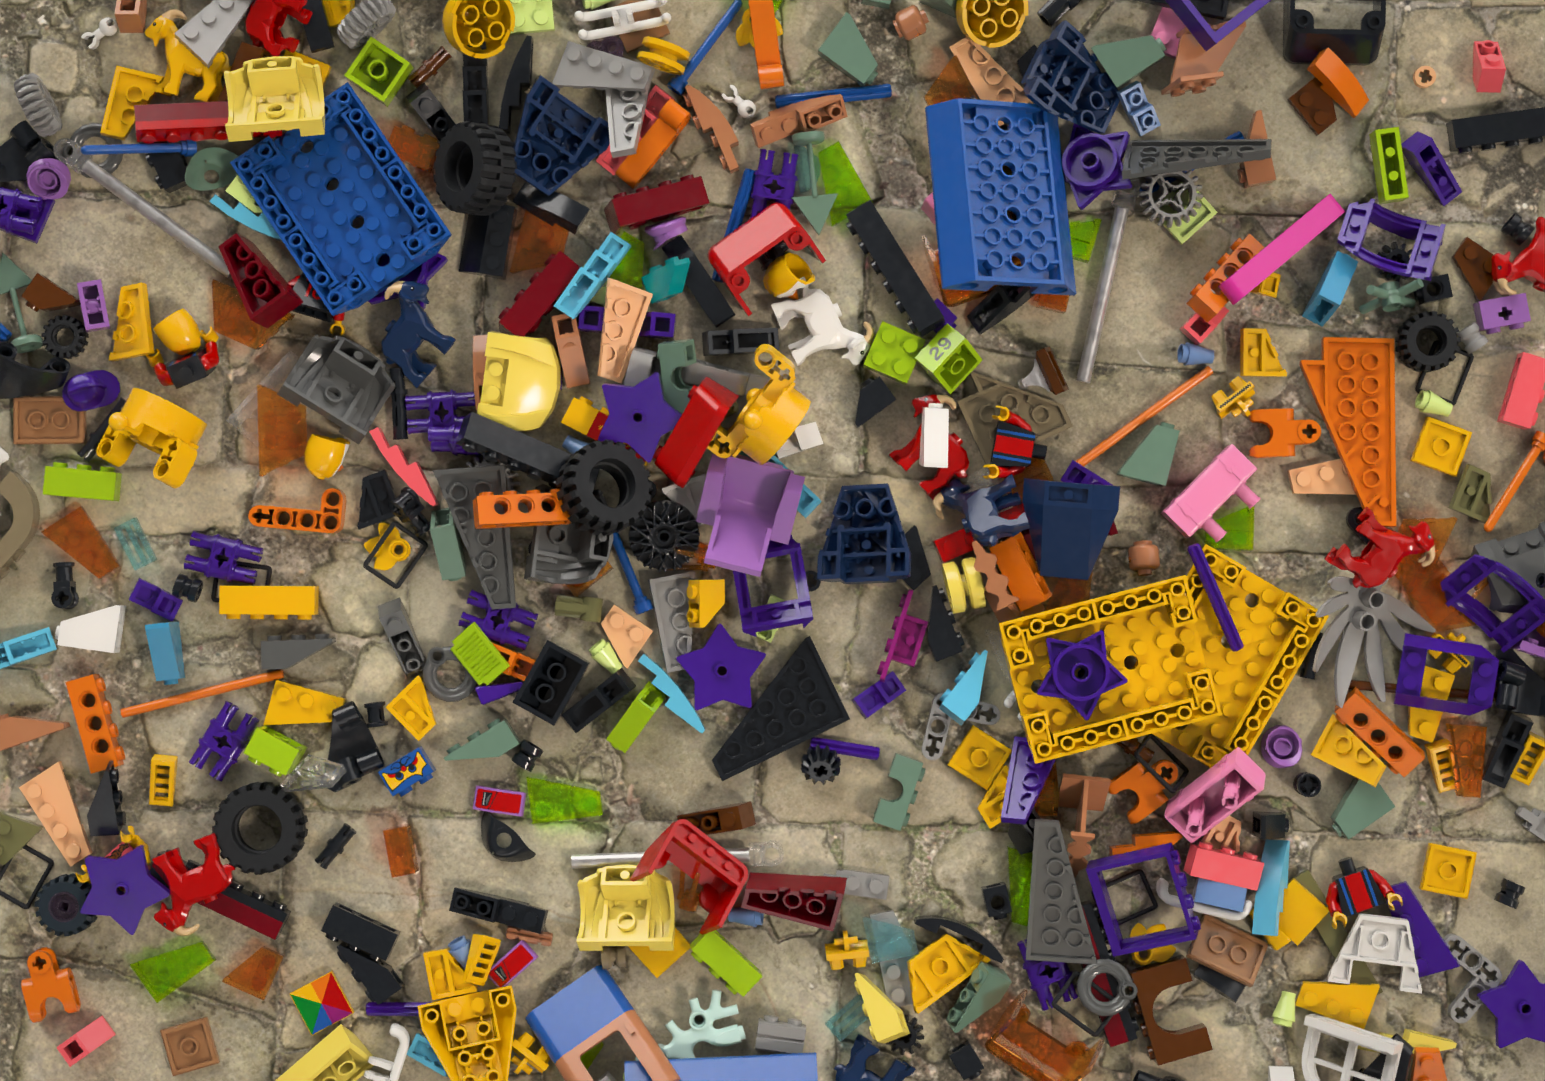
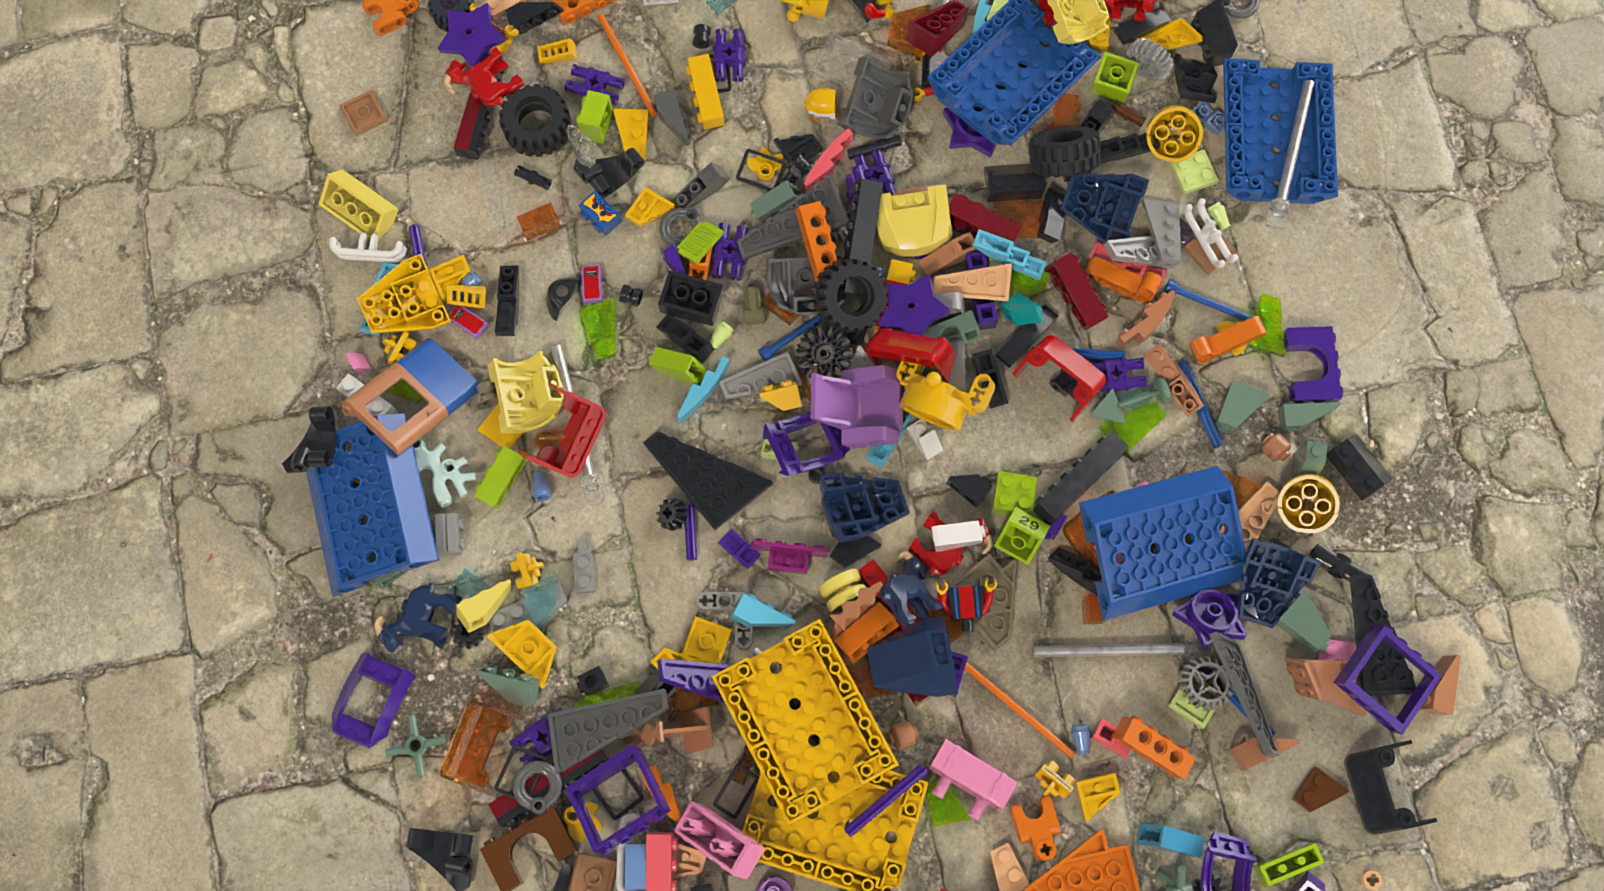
camera: 75 degrees right, 15 degrees down
(86, 1041) = (354, 40): coral slope -> none
(155, 599) = (688, 18): dark purple slope -> none
(166, 651) = (652, 30): dark azure slope -> none
(172, 969) = (417, 87): clear neon green wing -> none
(256, 973) = (426, 145): clear orange wing -> none
(280, 430) = (832, 69): clear orange wing -> none
(297, 515) = (772, 97): orange beam -> none
(322, 1003) = (412, 194): tile -> none
(360, 932) = (471, 208): black brick -> none
(375, 714) = (638, 182): black bush -> none
(376, 976) = (439, 226): black slope -> none
(410, 331) = (930, 139): dark blue animal -> none
(492, 743) = (637, 269): sand green slope -> none
(519, 77) = (1154, 173): black slope -> none
(530, 937) = (492, 340): nougat axle -> none
(625, 634) = (741, 346): light nougat wing -> none
(663, 55) = (1191, 269): yellow wheel -> none
(665, 230) = (1058, 303): medium lavender piece -> none
(703, 667) = (724, 434): dark purple plate -> none
(722, 818) = (613, 449): reddish brown slope -> none
(744, 106) = (1170, 341): white arm -> none
(785, 275) = (1051, 398): yellow piece -> none
(796, 897) = (561, 519): dark red wedge -> none
(823, 325) = (1020, 436): white animal -> none
(894, 812) = (681, 584): sand green arch -> none
(933, 923) = (552, 683): black slope -> none
(940, 631) = (801, 584): black slope -> none
(966, 1060) = (455, 688): black brick -> none
(1045, 373) = (1031, 618): reddish brown piece -> none
(1083, 238) = (1147, 622): clear neon green wing -> none
(1092, 659) = (802, 682): dark purple plate -> none
(1137, 108) = (1267, 643): medium blue slope -> none
(1147, 787) = (711, 784): orange piece -> none
(1153, 456) = (987, 722): sand green slope -> none
(1269, 286) = (1157, 784): yellow slope -> none
(1281, 249) = (1191, 786): dark pink beam -> none
(1338, 82) = (1343, 804): orange slope -> none

